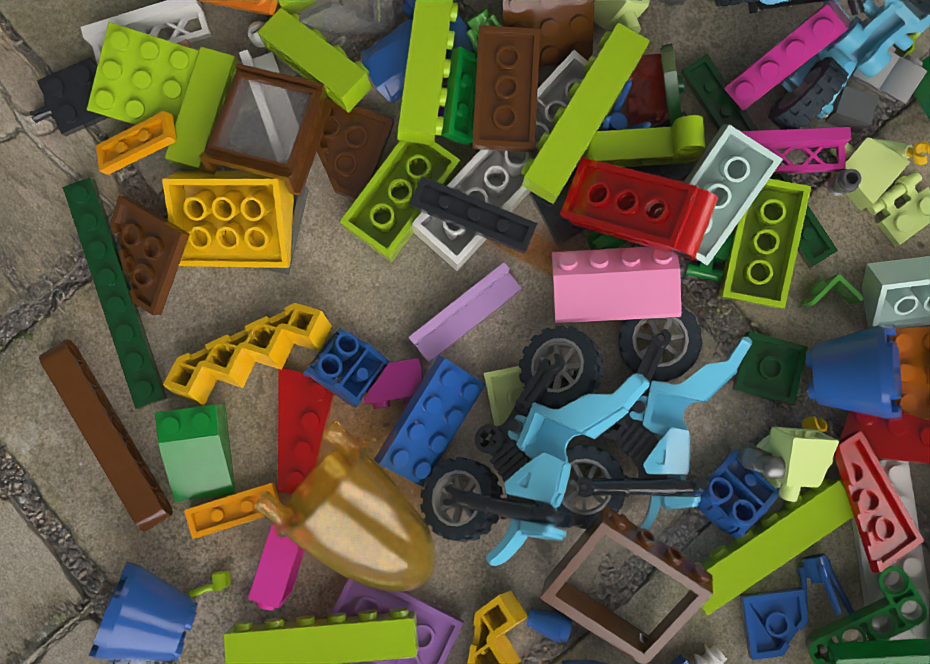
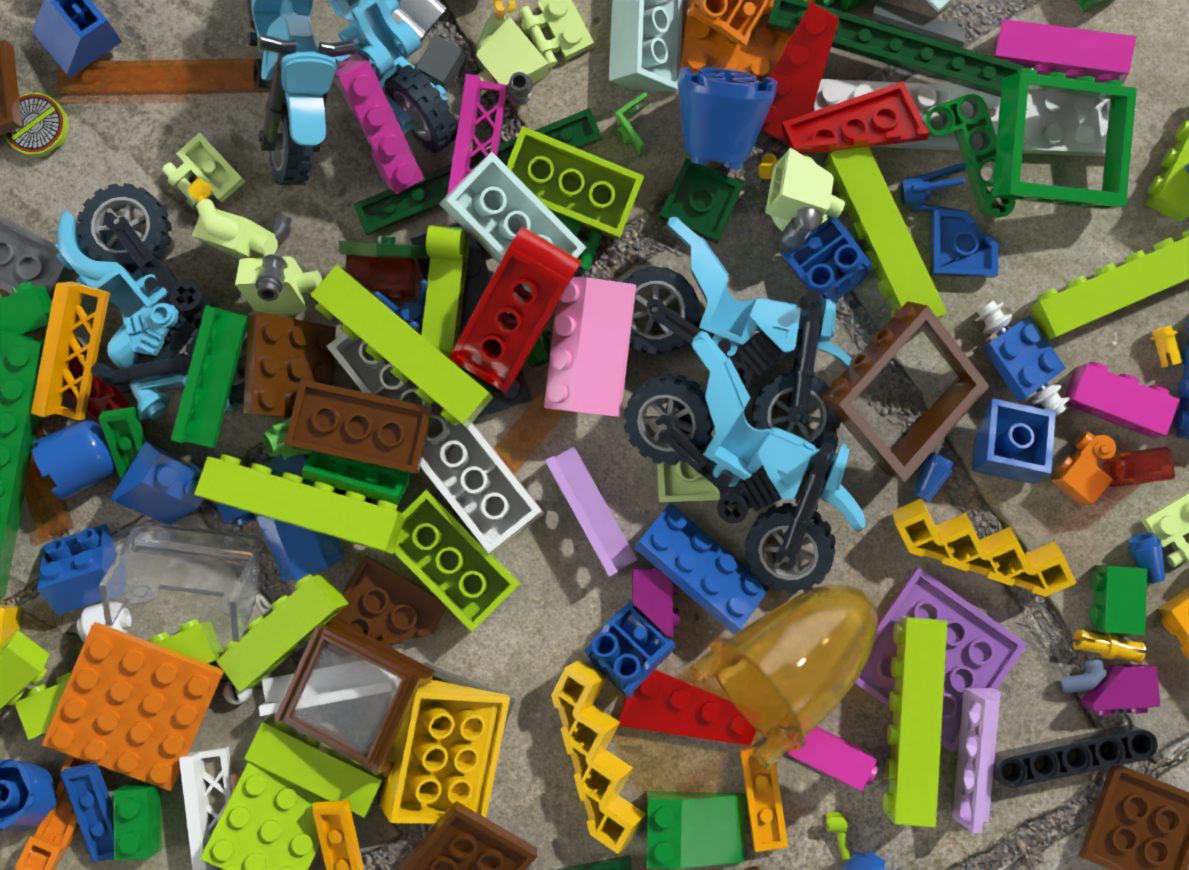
camera: 85 degrees left, 0 degrees up
(473, 215) = (492, 485): black plate -> none

